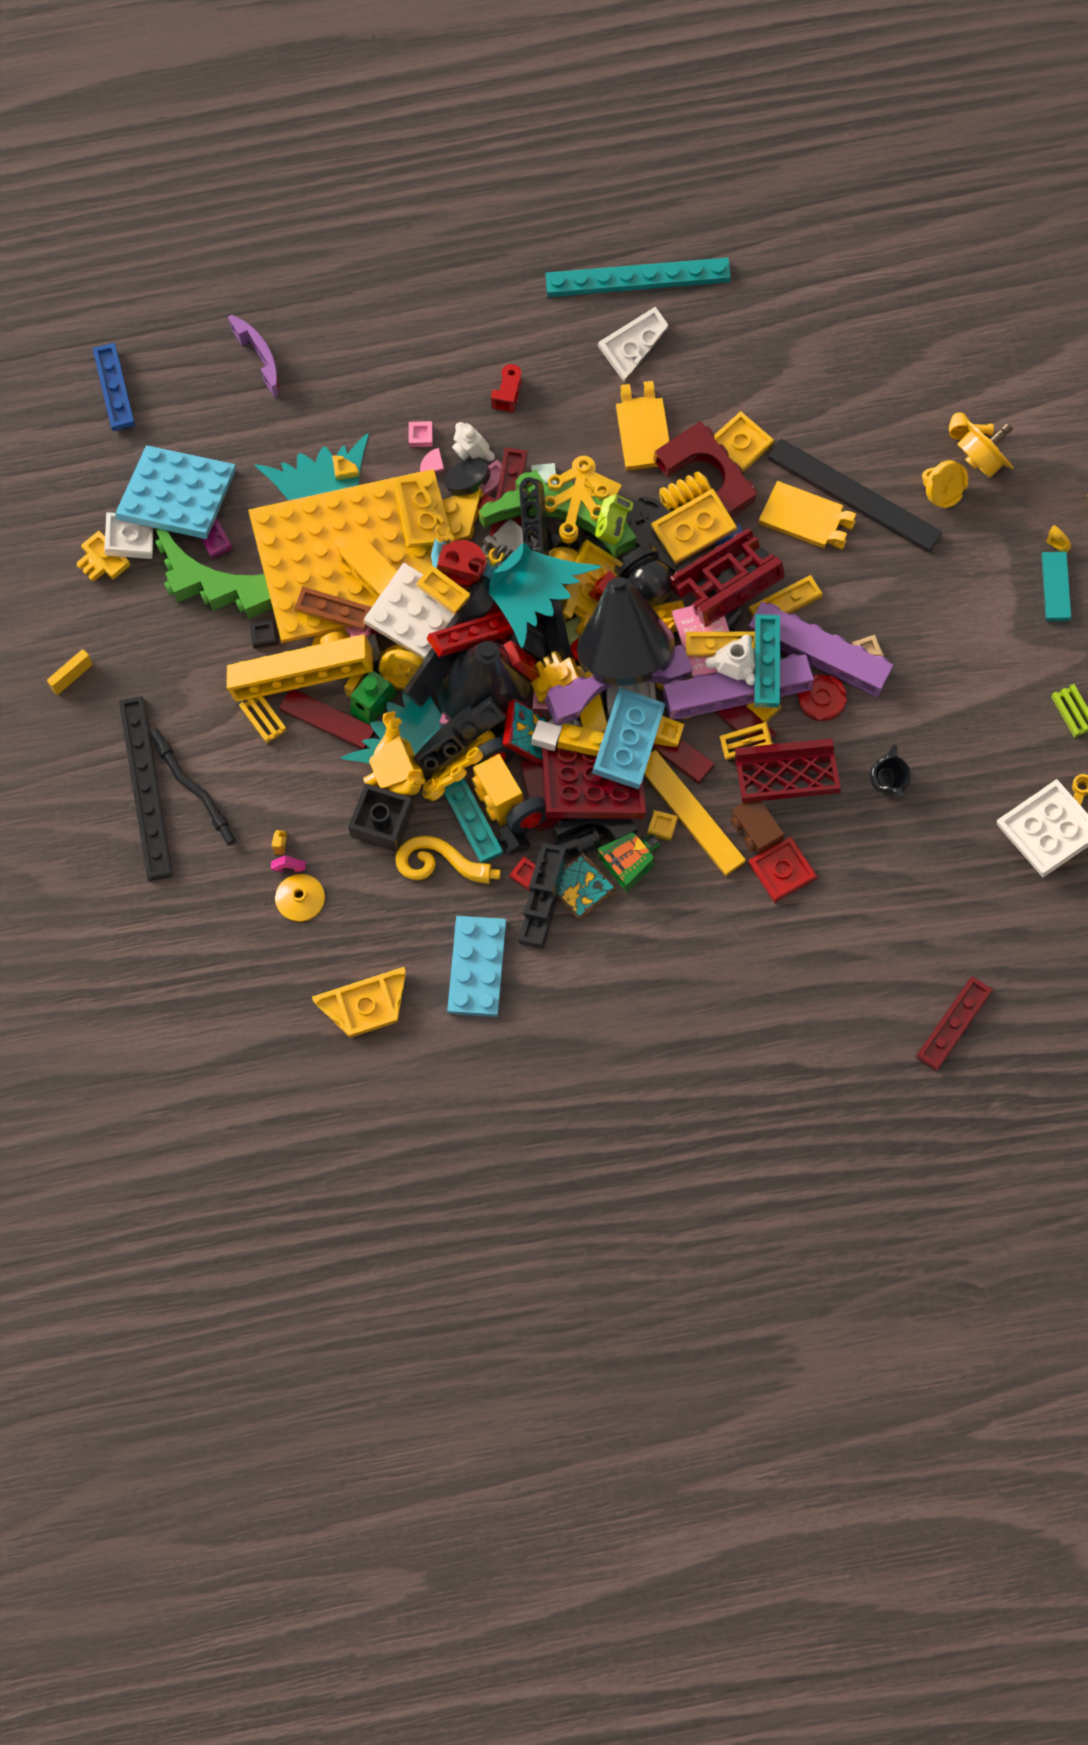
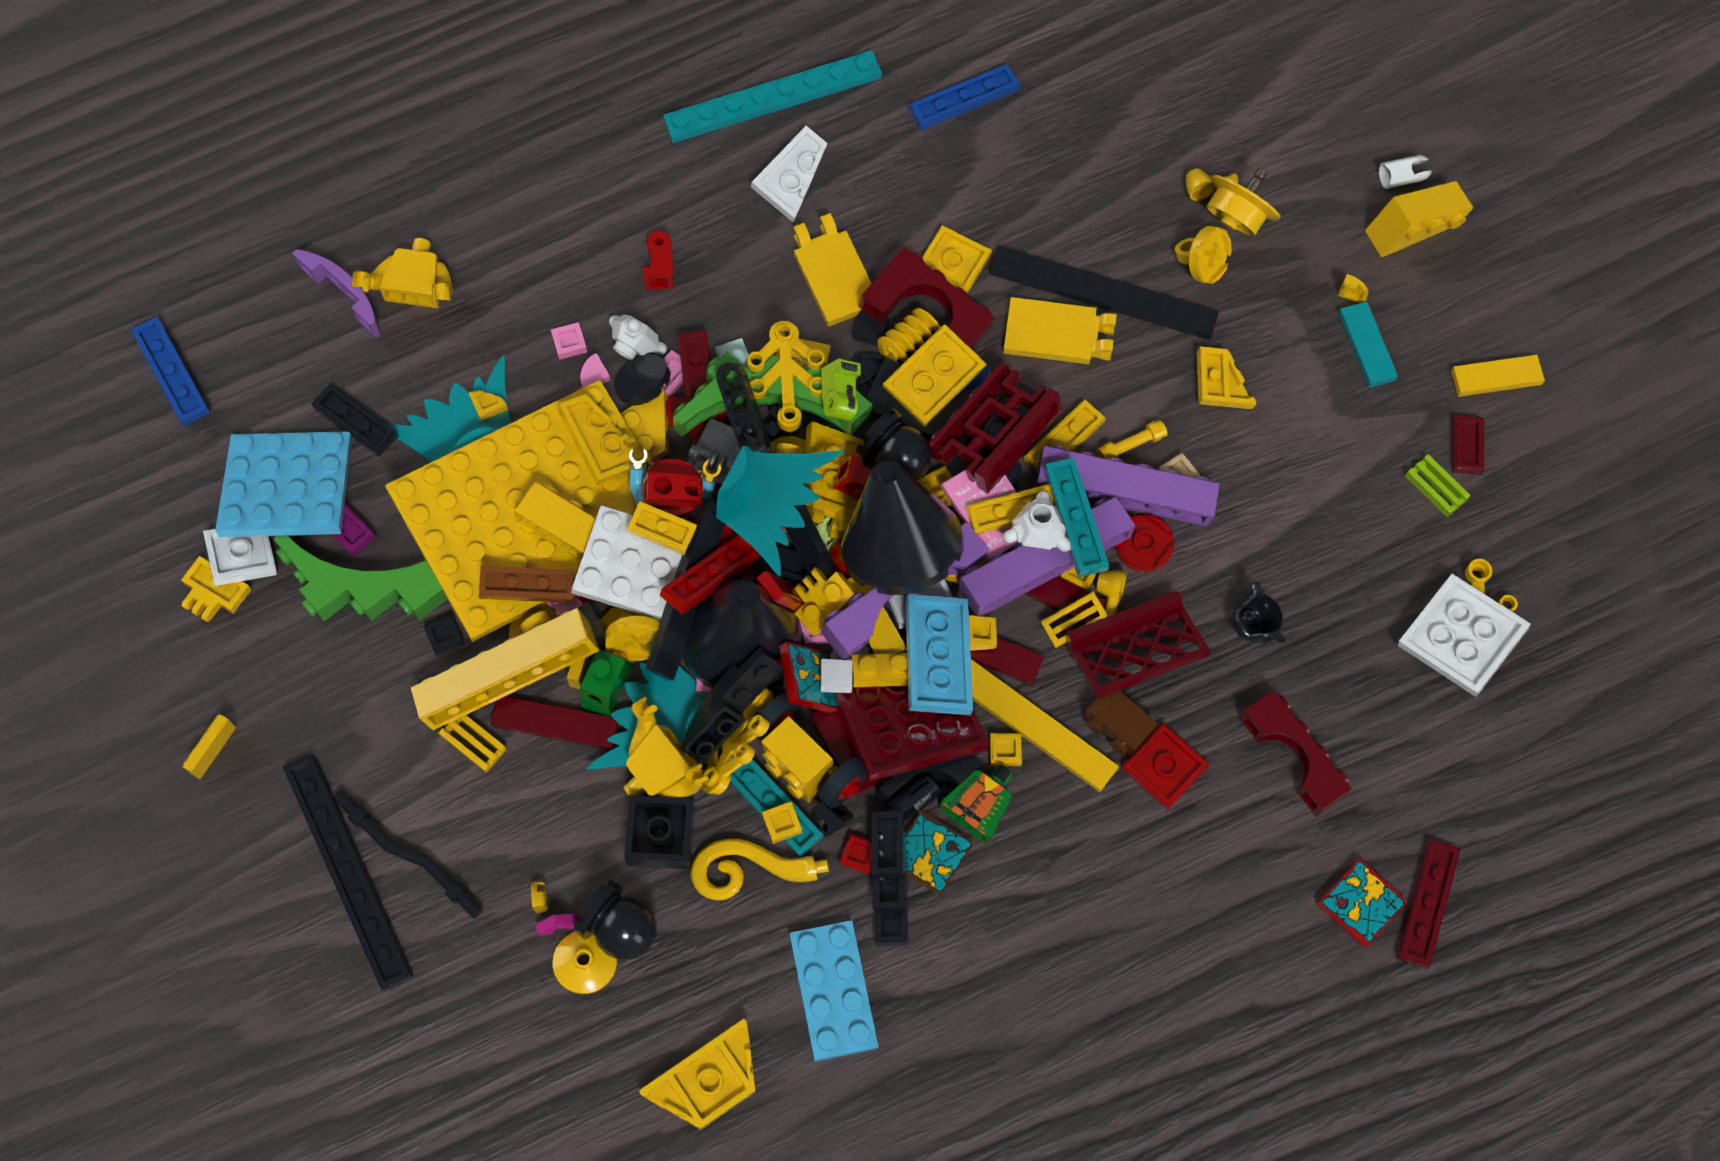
camera: 25 degrees left, 0 degrees up
(241, 456) = (355, 419): none -> black tile
(311, 356) = (409, 277): none -> yellow torso
(331, 874) = (621, 925): none -> black tile
(473, 833) = (782, 822): none -> yellow tile
(656, 479) = (868, 329): none -> black tile
(785, 723) = (1112, 585): none -> yellow bar
(792, 312) = (964, 97): none -> blue tile
(858, 613) = (1154, 431): none -> yellow bar
(876, 856) = (1273, 721): none -> dark red arch
(902, 1009) = (1362, 903): none -> tile
(924, 586) = (1220, 380): none -> yellow wing

